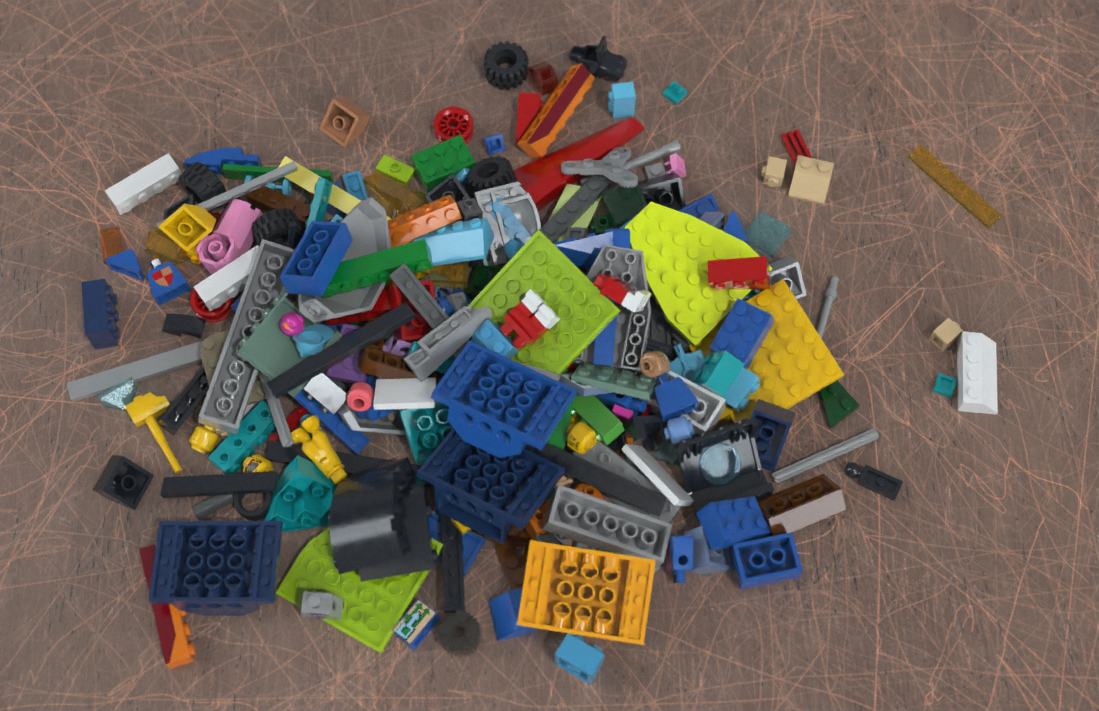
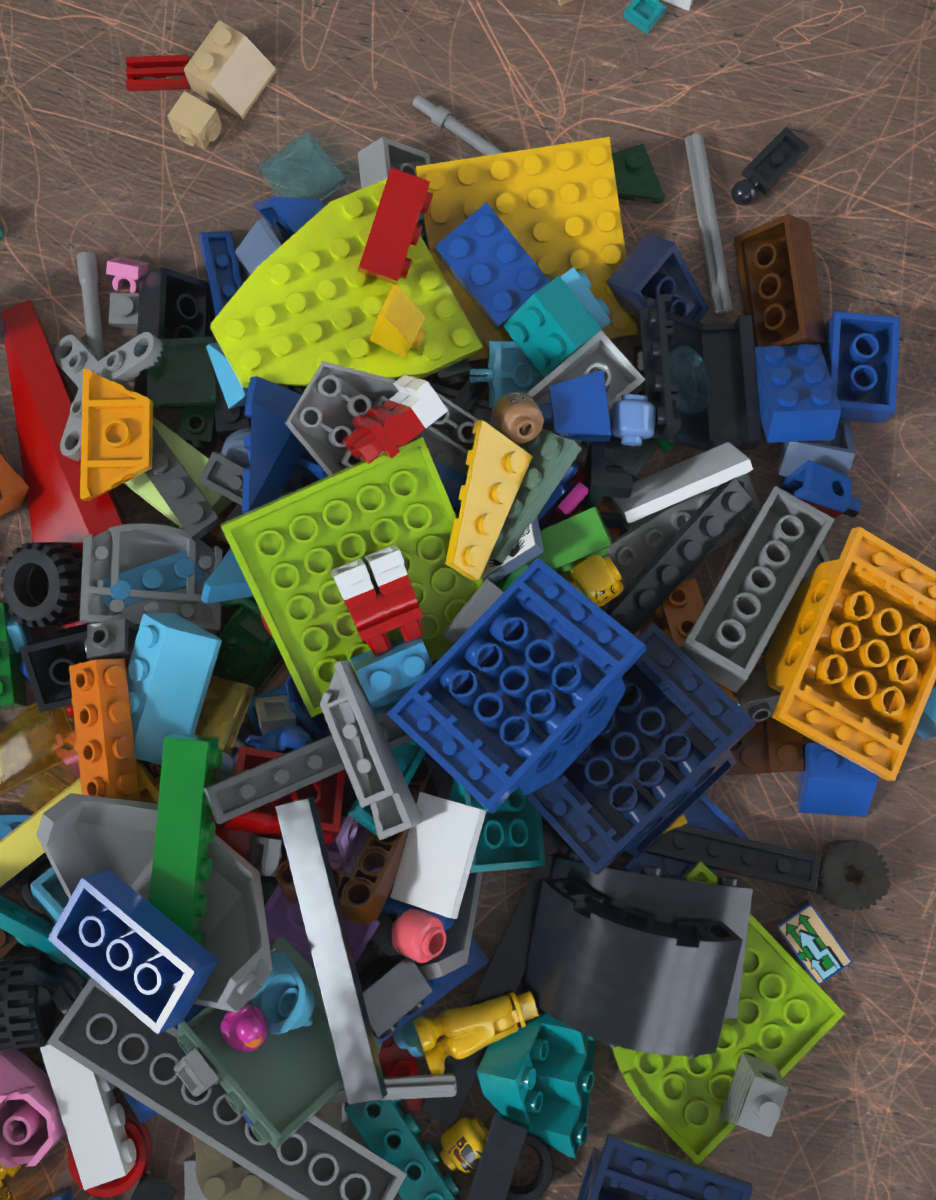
camera: 75 degrees left, 15 degrees up
(264, 305) = (195, 1073): none -> light grey tile
(377, 312) = (264, 854): none -> dark grey plate
(578, 180) = (113, 435): none -> light orange wing
(608, 358) = (486, 498): none -> yellow wing
(684, 290) = (398, 324): none -> yellow slope

